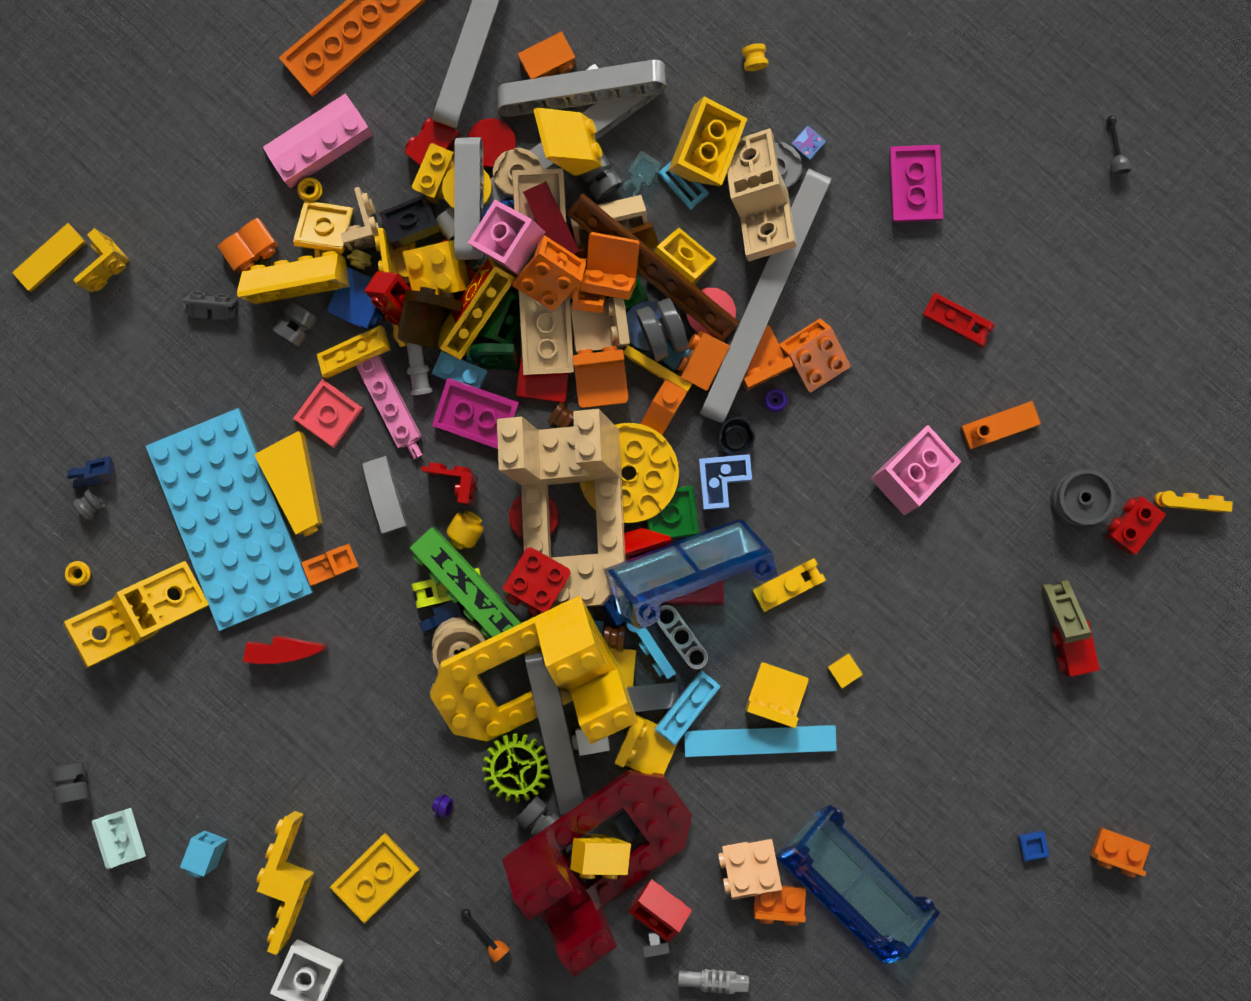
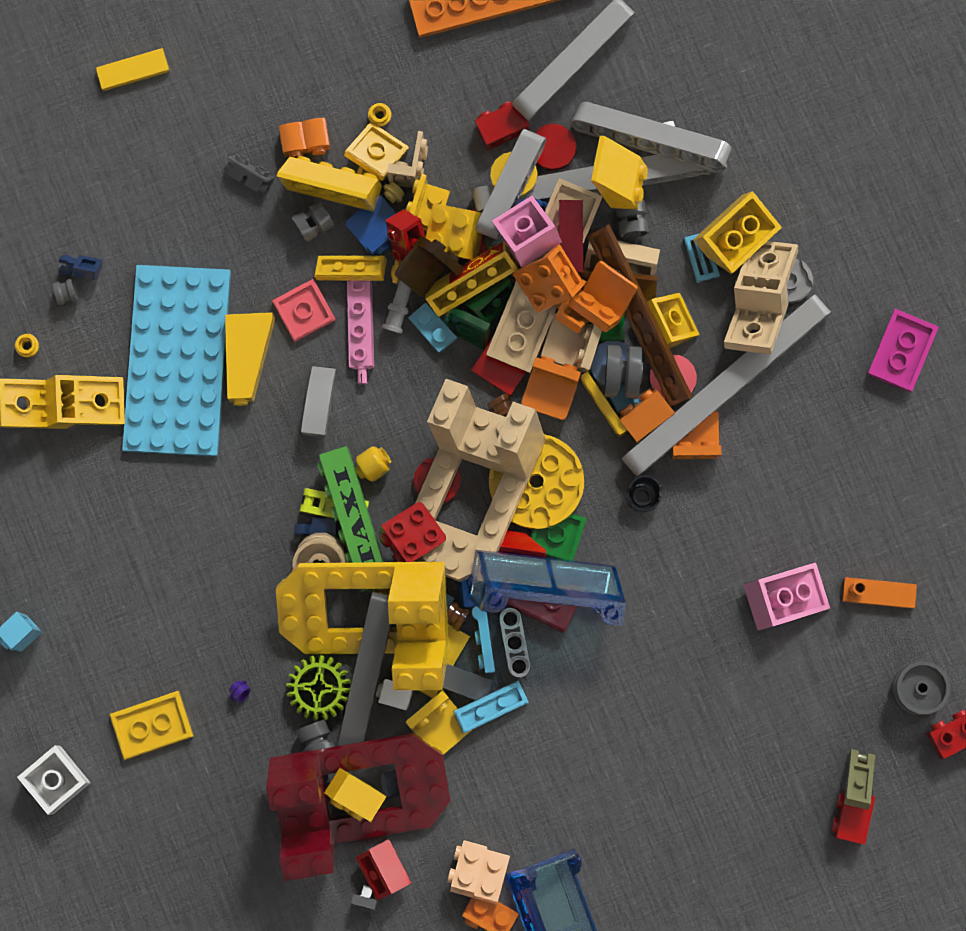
camera: 25 degrees right, 5 degrees down
(110, 263) = (181, 98): yellow bracket -> none
(282, 650) = (167, 492): red slope -> none
(284, 881) = (75, 688): yellow bracket -> none
(317, 141) = (406, 77): bright pink slope -> none
(329, 564) = (243, 439): orange slope -> none
(409, 222) = (451, 180): black plate -> none
(432, 172) = (490, 148): yellow bracket -> none
(464, 489) = (388, 428): red bracket -> none
(472, 412) = (426, 366): dark pink plate -> none
(497, 948) = (225, 837): hinge -> none
(513, 160) = (563, 169): tan tile -> none
(548, 58) = (635, 97): orange brick -> none
(642, 171) = (671, 230): clear light blue plate -> none
(664, 407) = (593, 439): orange slope -> none
(715, 475) = (611, 517): light blue brick -> none
(754, 57) = (813, 178): yellow wheel -> none
(760, 740) = (540, 766): medium azure tile -> none
(777, 694) = (574, 732): yellow bracket -> none
(779, 395) = (686, 479): dark purple plate -> none
(787, 585) = (628, 643): yellow plate -> none
(808, 143) = (825, 273): tile -> none
(816, 354) = (746, 456): orange bracket -> none
(845, 670) = (642, 741): yellow tile -> none
(957, 319) = (884, 484): red plate -> none

